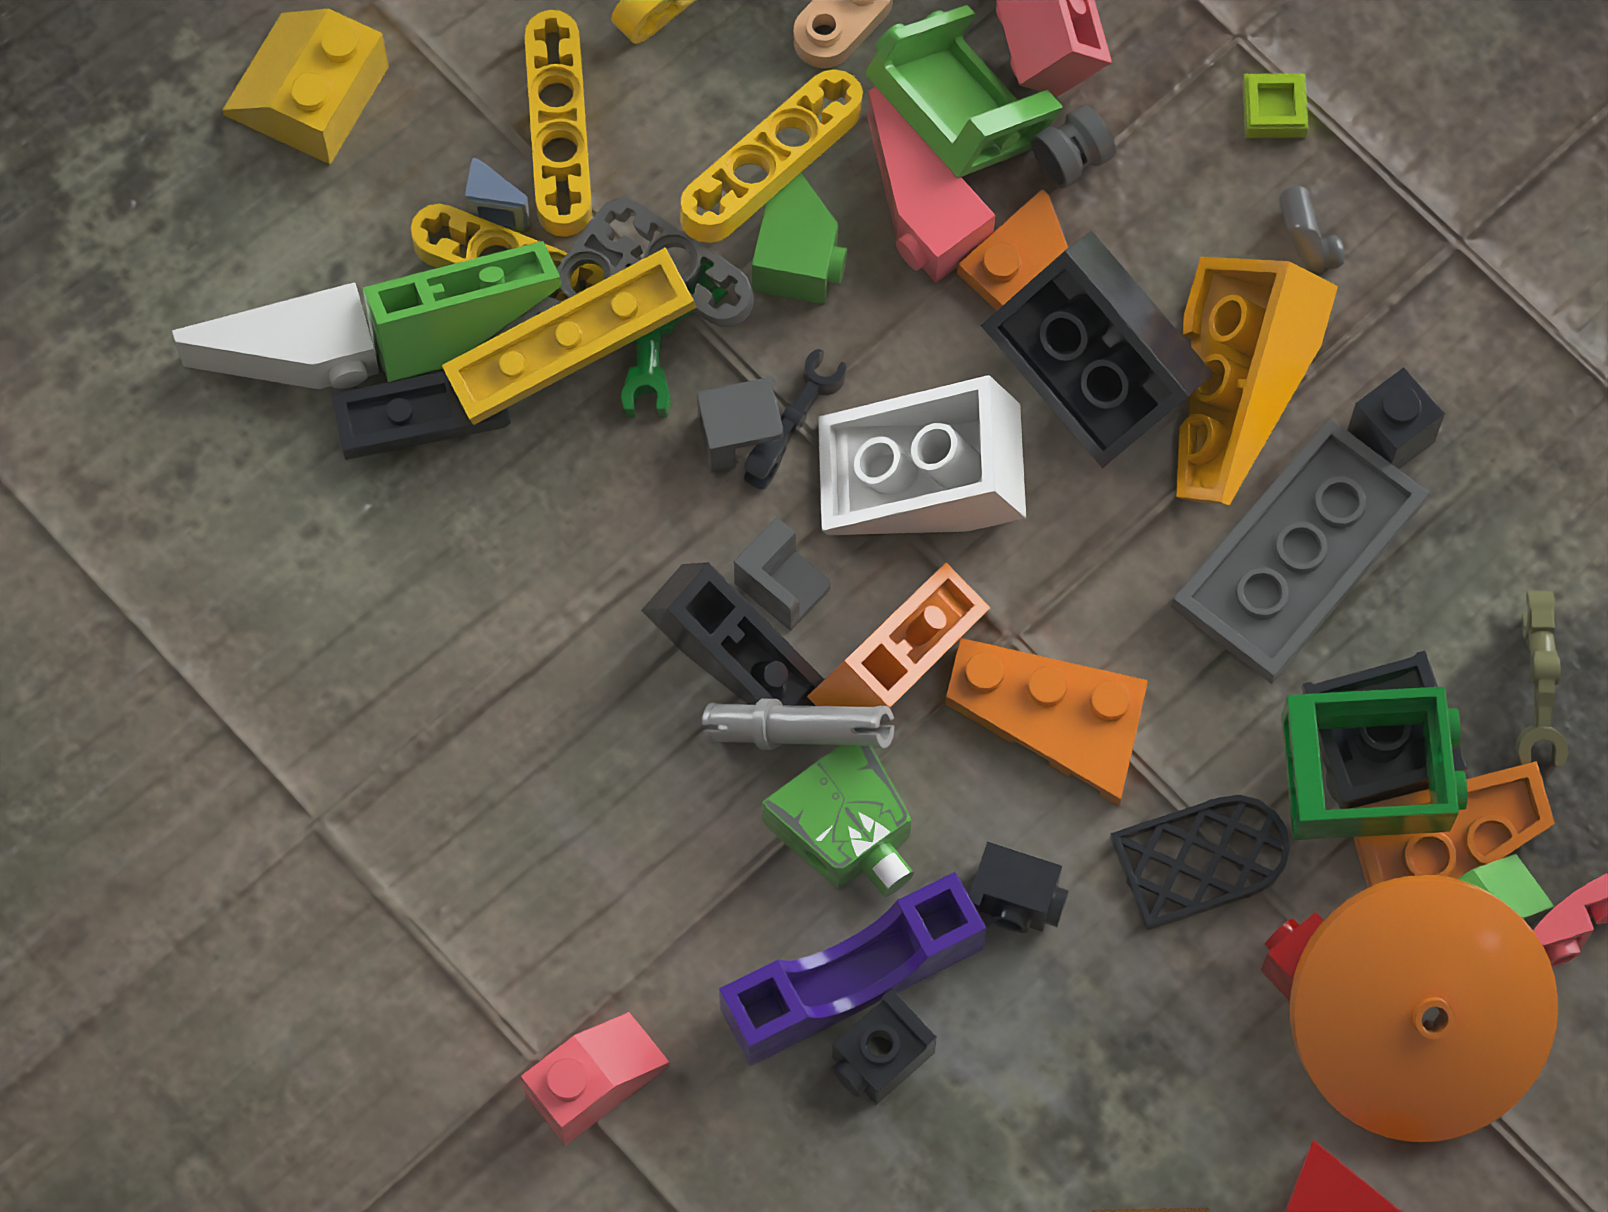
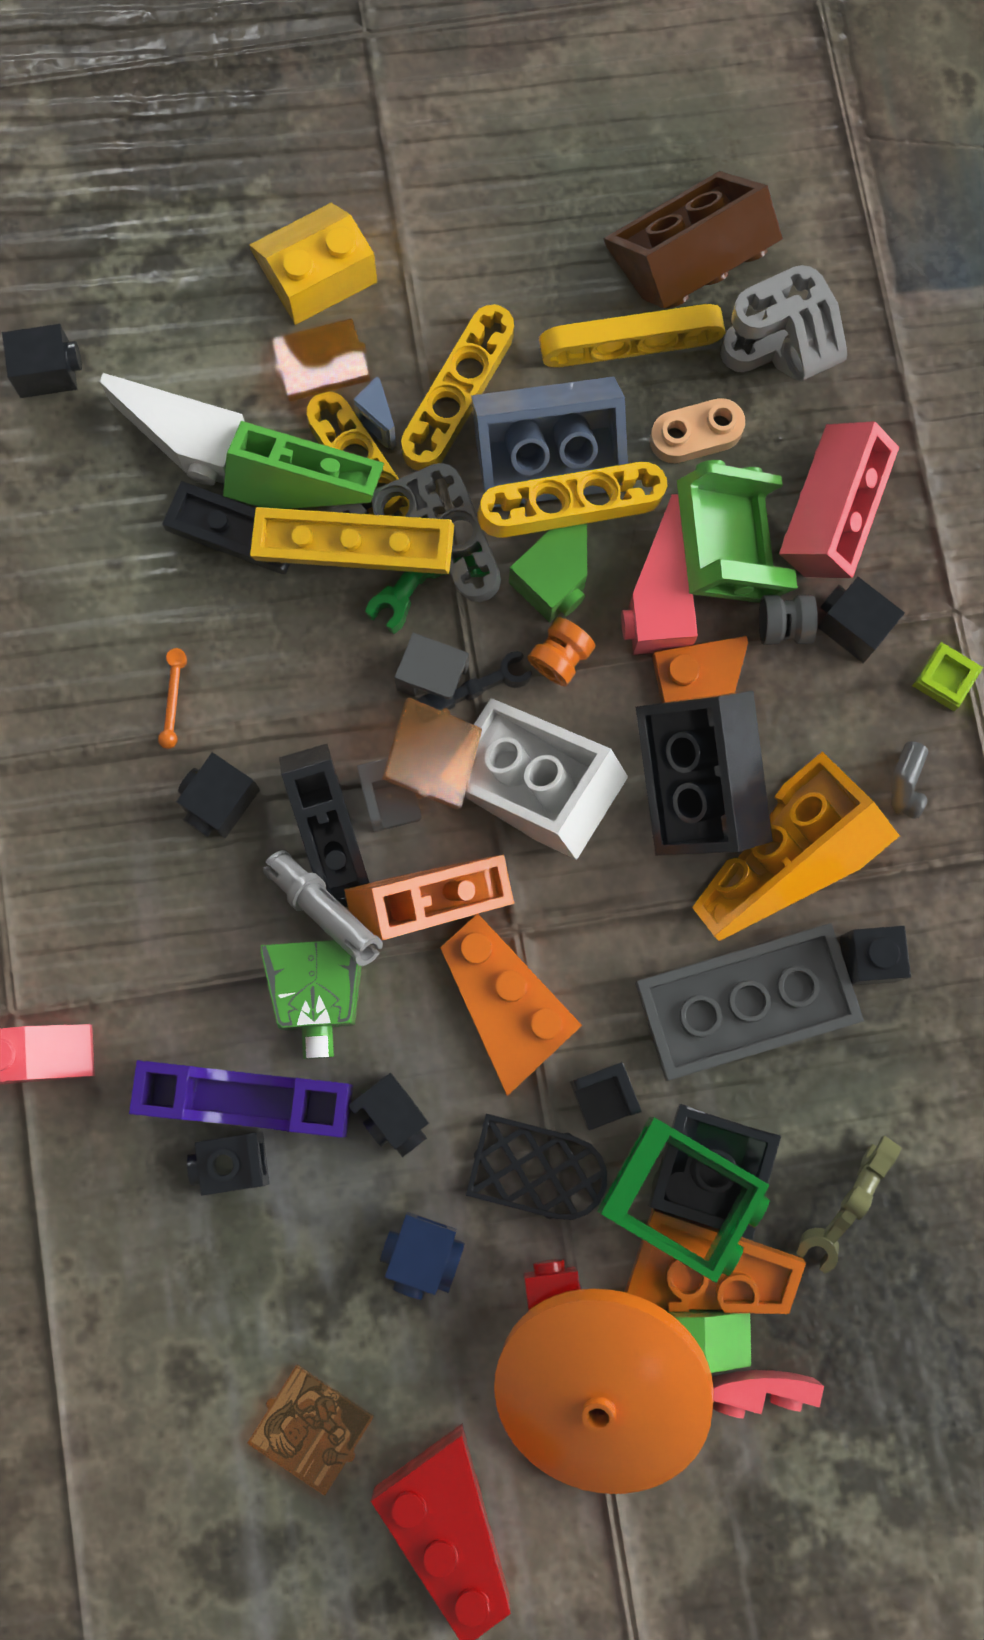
camera: 30 degrees right, 10 degrees up
(85, 363) = (41, 360): none -> black brick
(390, 181) = (321, 359): none -> clear orange piece
(452, 587) = (177, 660): none -> orange hinge
(600, 691) = (215, 796): none -> black brick
(691, 109) = (550, 432): none -> sand blue slope
(803, 501) = (432, 753): none -> clear orange piece
(862, 320) = (561, 651): none -> orange wheel
(1145, 101) = (859, 618): none -> black brick
(1146, 1009) = (422, 1256): none -> dark blue brick
(1221, 731) = (605, 1096): none -> black panel

